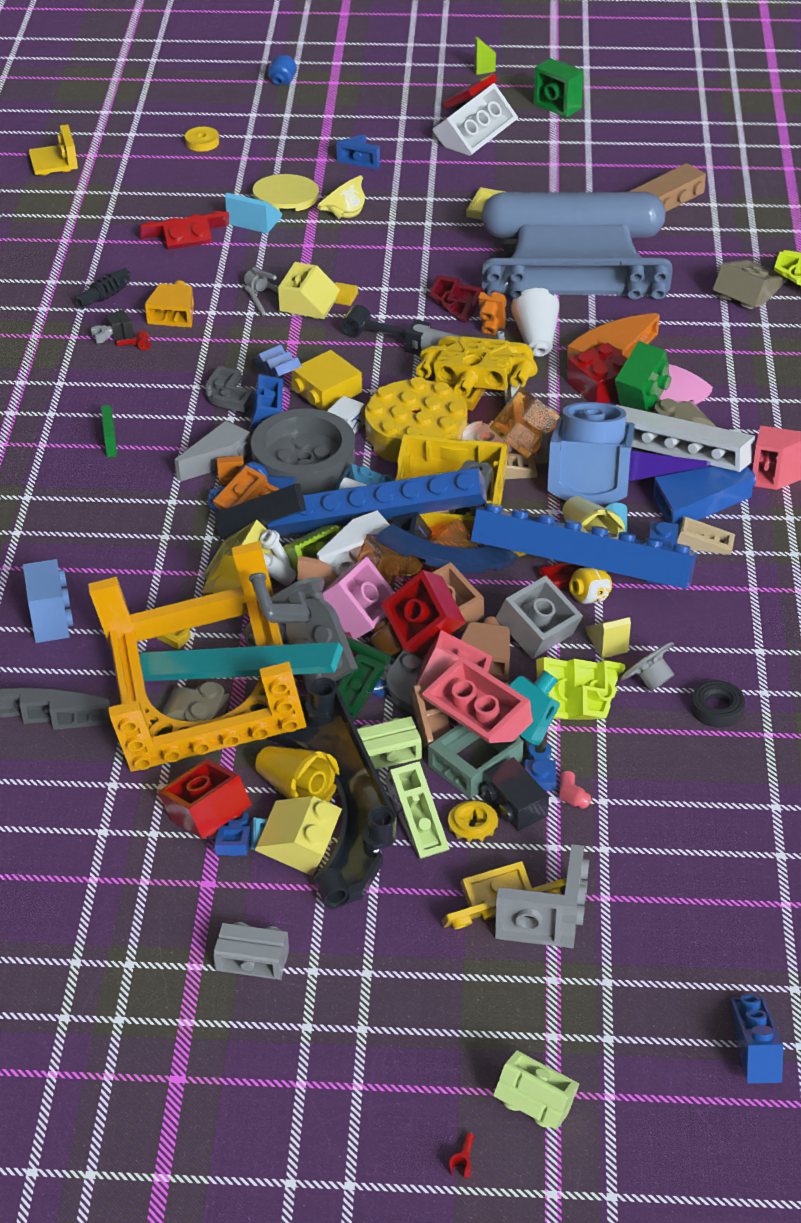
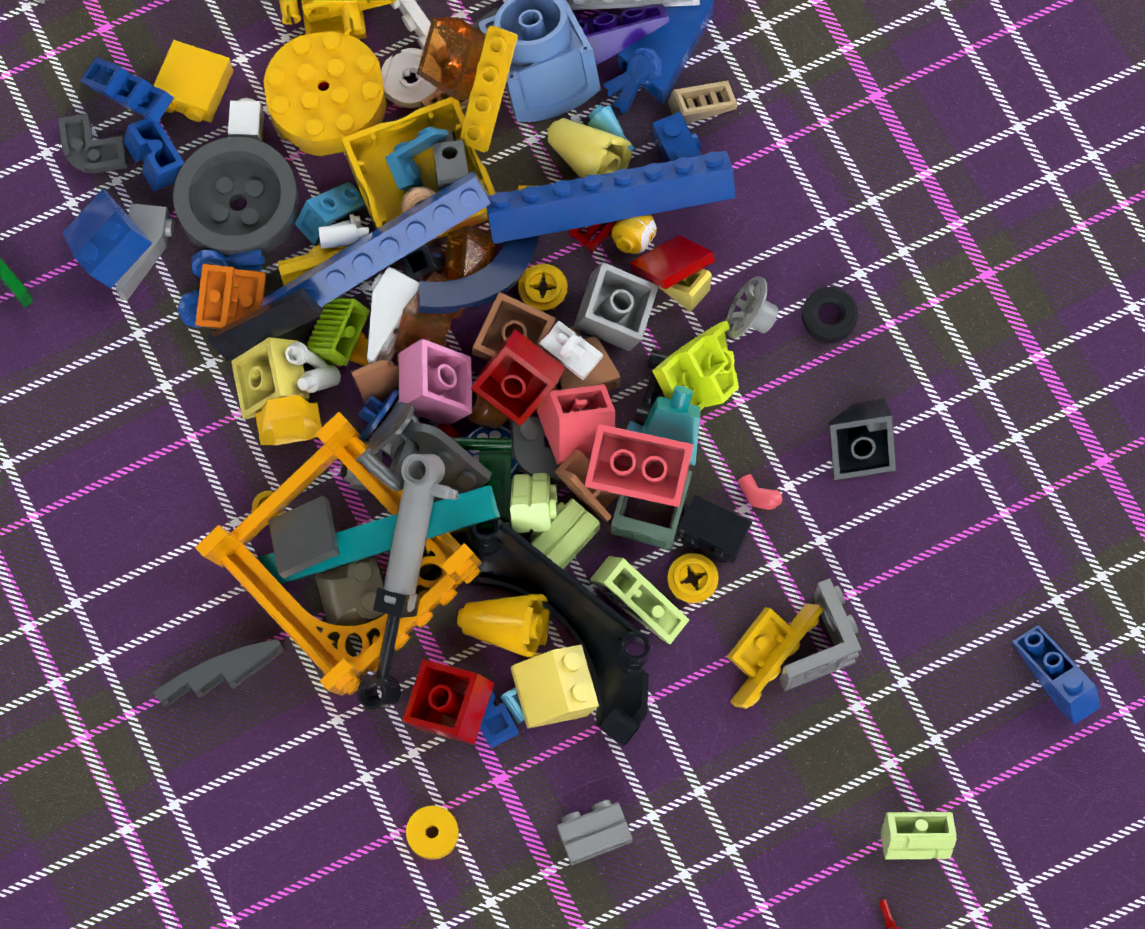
camera: 30 degrees left, 30 degrees up
(47, 600) = (120, 546): medium blue brick -> none
(122, 901) = (435, 847): none -> yellow piece
(180, 641) = (303, 537): none -> dark grey tile
(190, 429) = (105, 239): none -> blue slope
(217, 699) = (399, 594): none -> light grey piece
(228, 468) = (176, 264): orange tile -> none
(375, 702) = (533, 502): none -> yellowish green brick
(453, 460) = (403, 168): none -> dark azure bracket
(480, 619) = (571, 350): none -> white hips
(491, 585) = (533, 277): none -> yellow gear
(532, 436) = (488, 88): none -> yellow bracket
(542, 768) = (716, 486): blue plate -> none
(608, 610) = (672, 261): none -> red tile
(665, 490) = (642, 68): none -> blue piece
(685, 791) = (862, 440): none -> black slope

